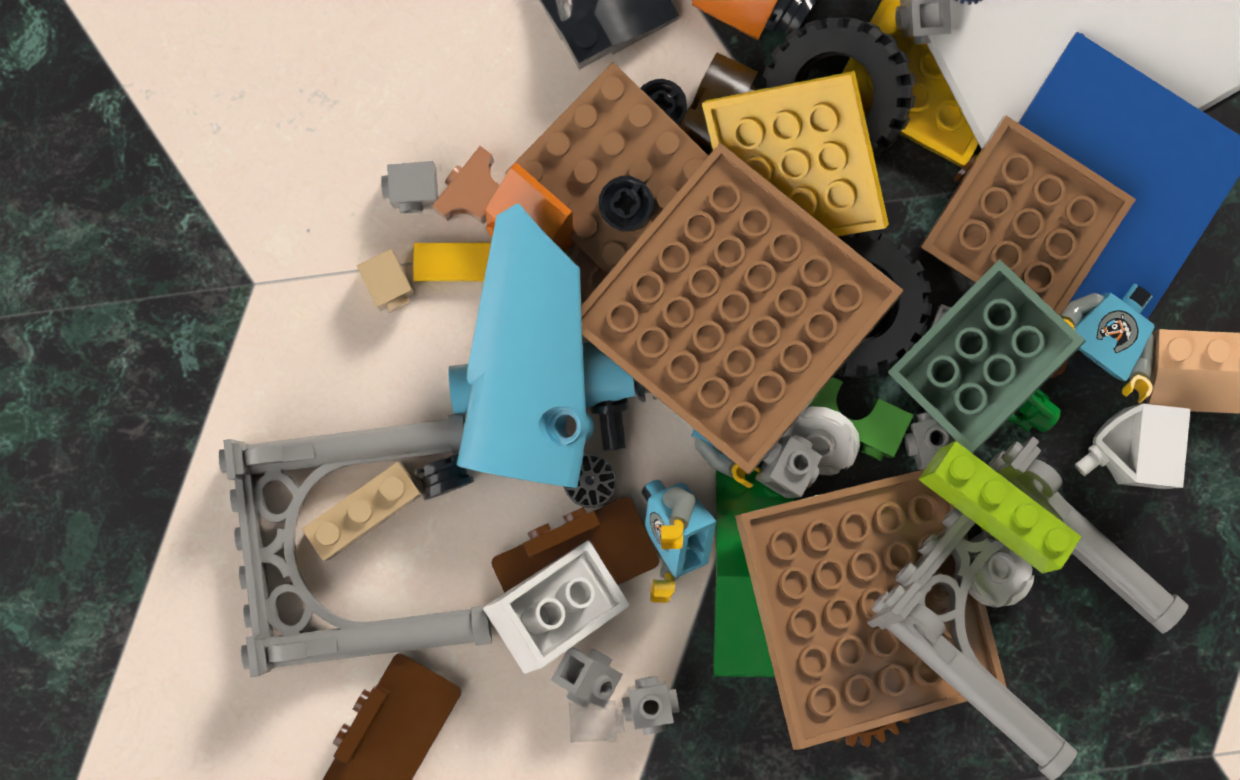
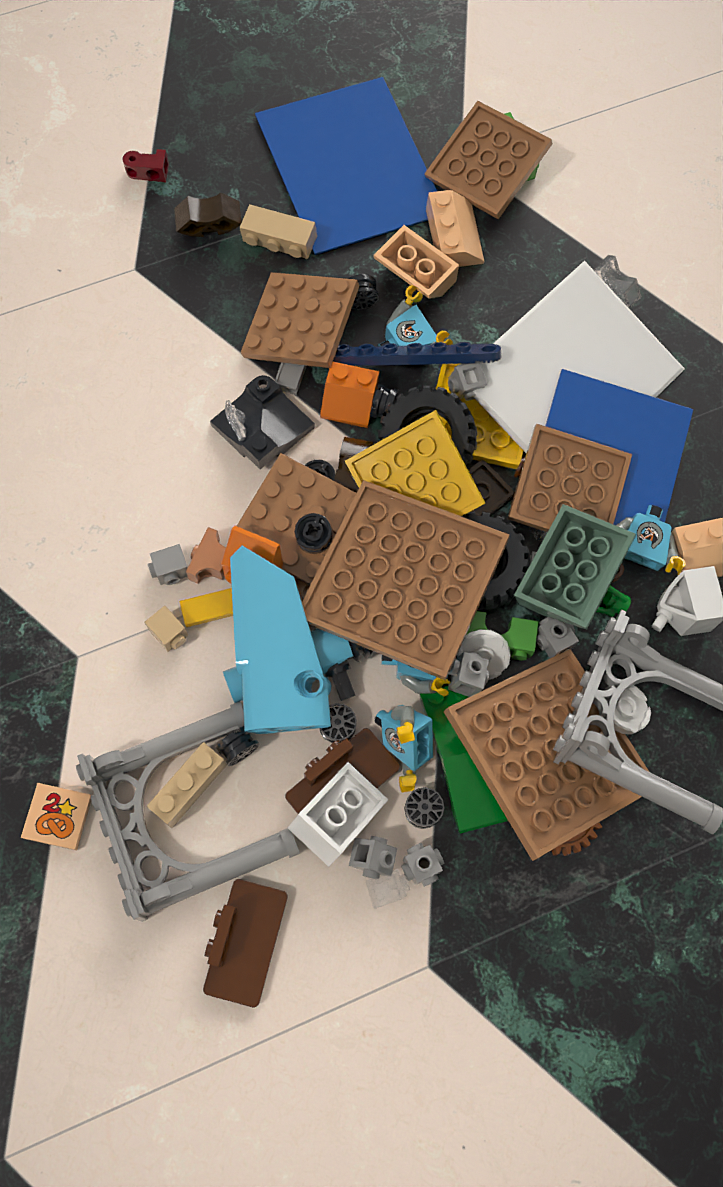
camera: 20 degrees left, 15 degrees down
(180, 503) = (56, 816): none -> light nougat tile
(675, 629) = (424, 808): none -> wheel
(906, 187) = (491, 487): none -> dark brown tile
(1000, 508) = (616, 659): lime brick -> none

